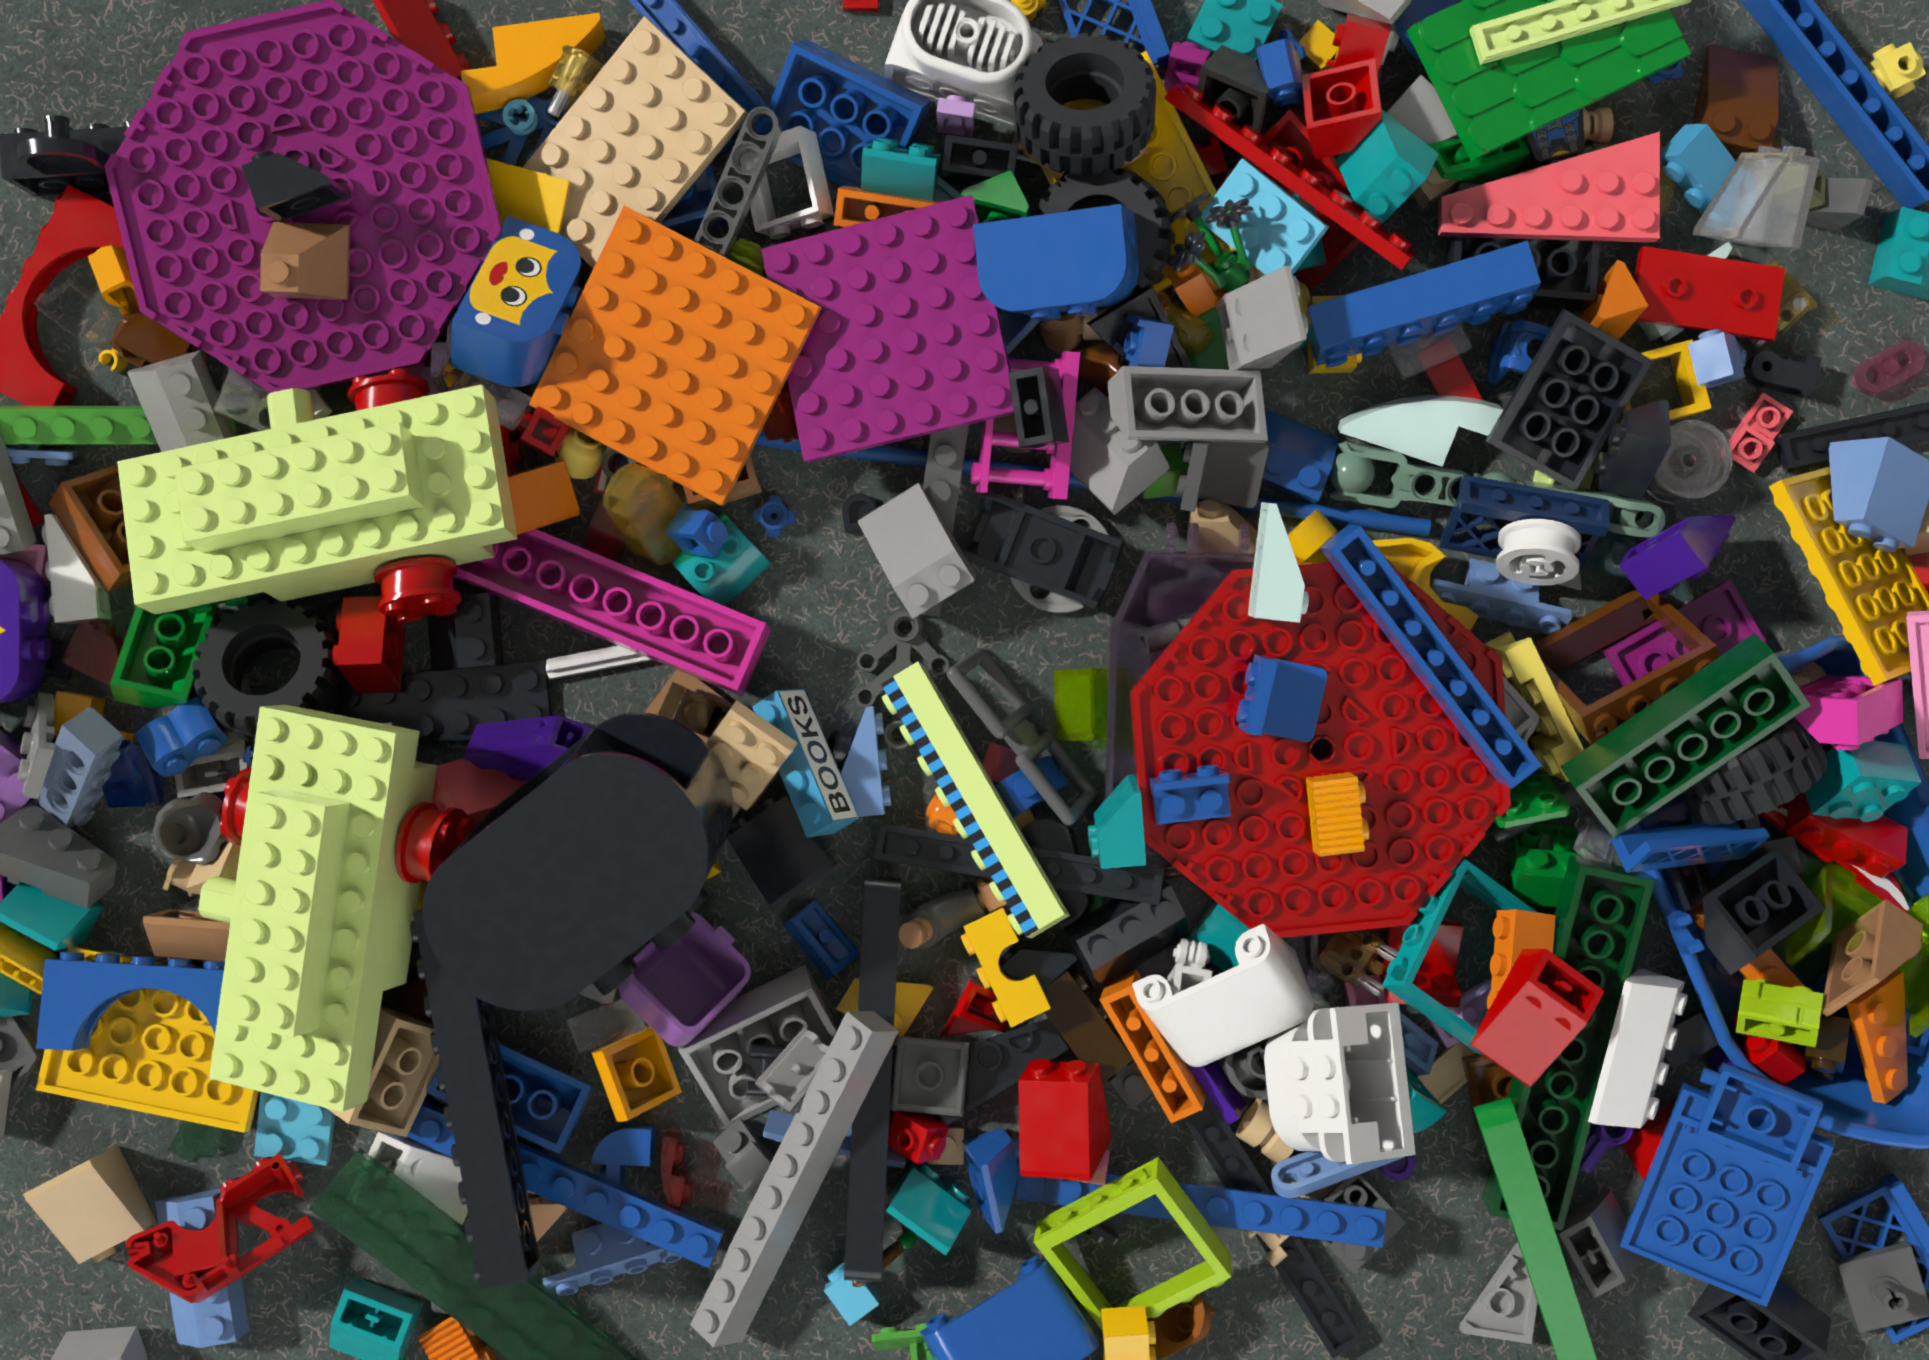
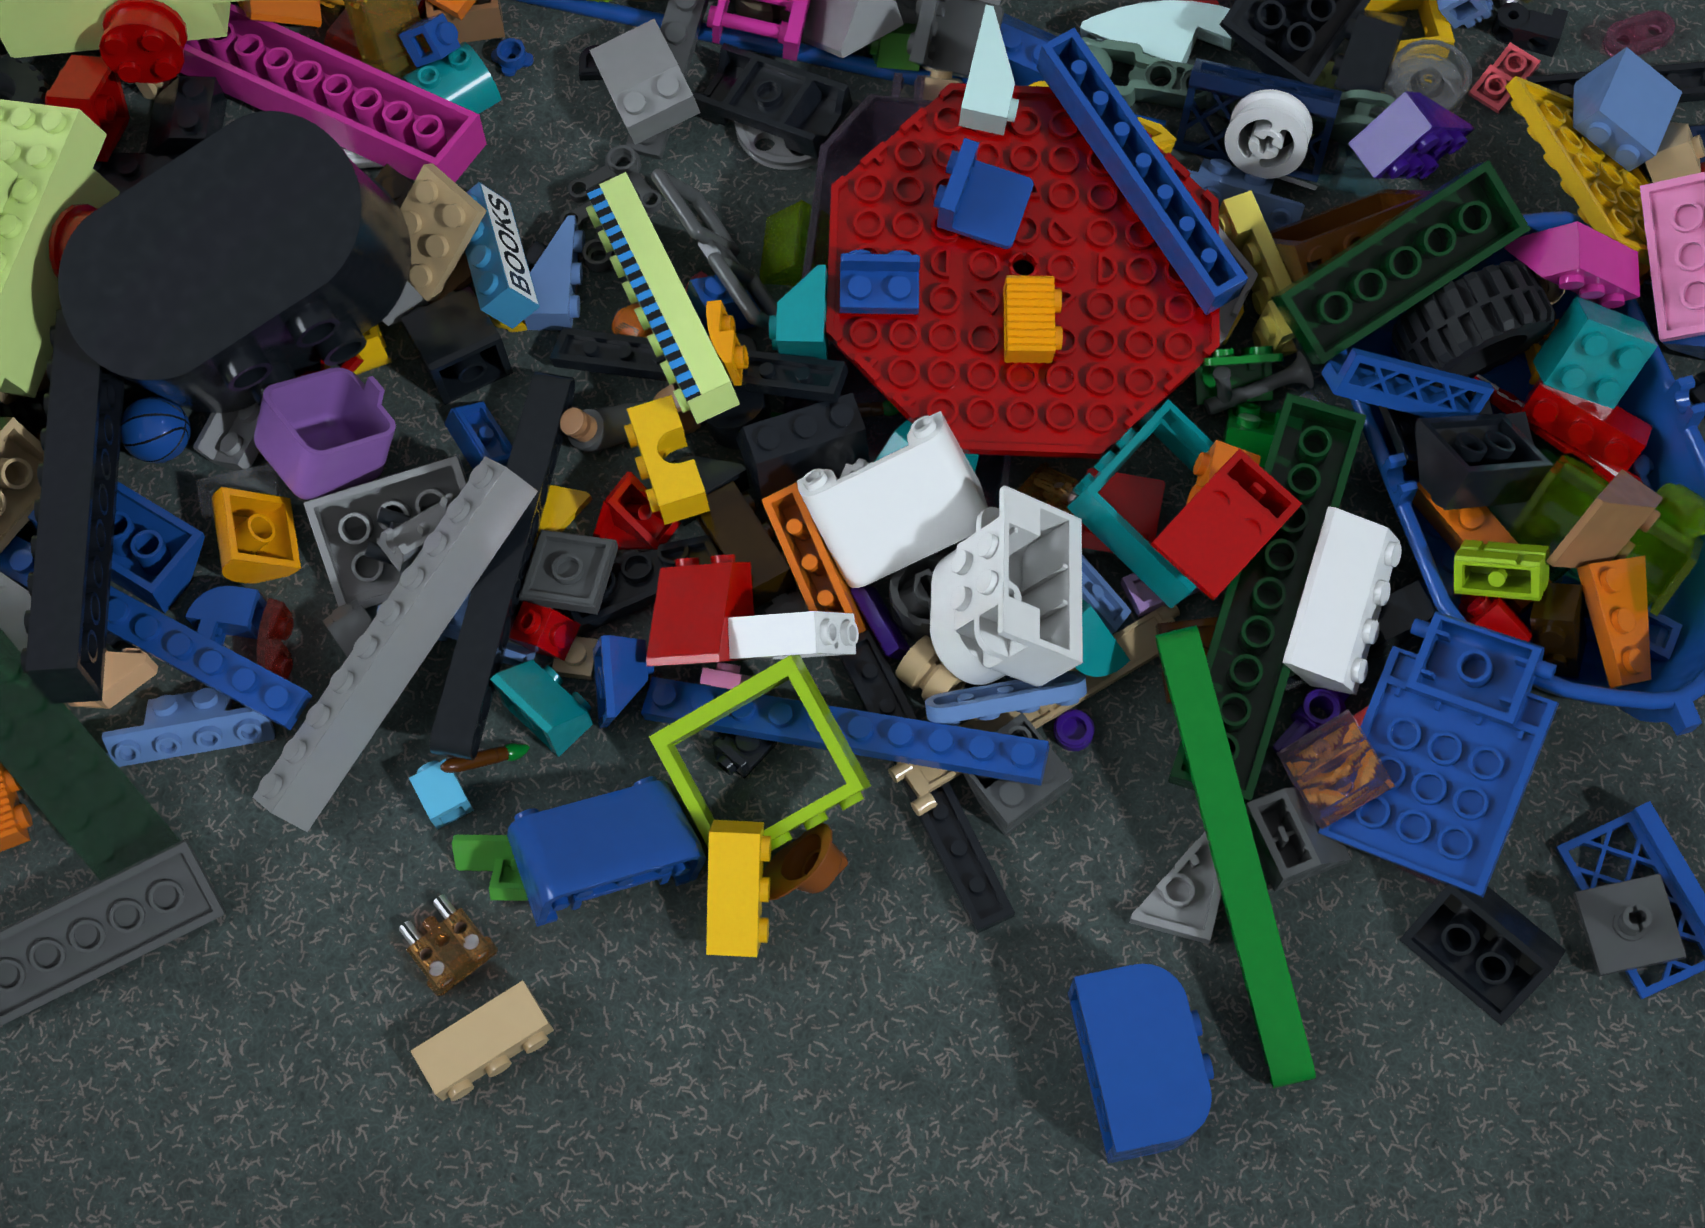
camera: 15 degrees right, 20 degrees down
(1053, 867) = (725, 341): none -> light orange slope
(1121, 1150) = (792, 634): none -> white window
(1635, 1198) = (1335, 769): none -> slope

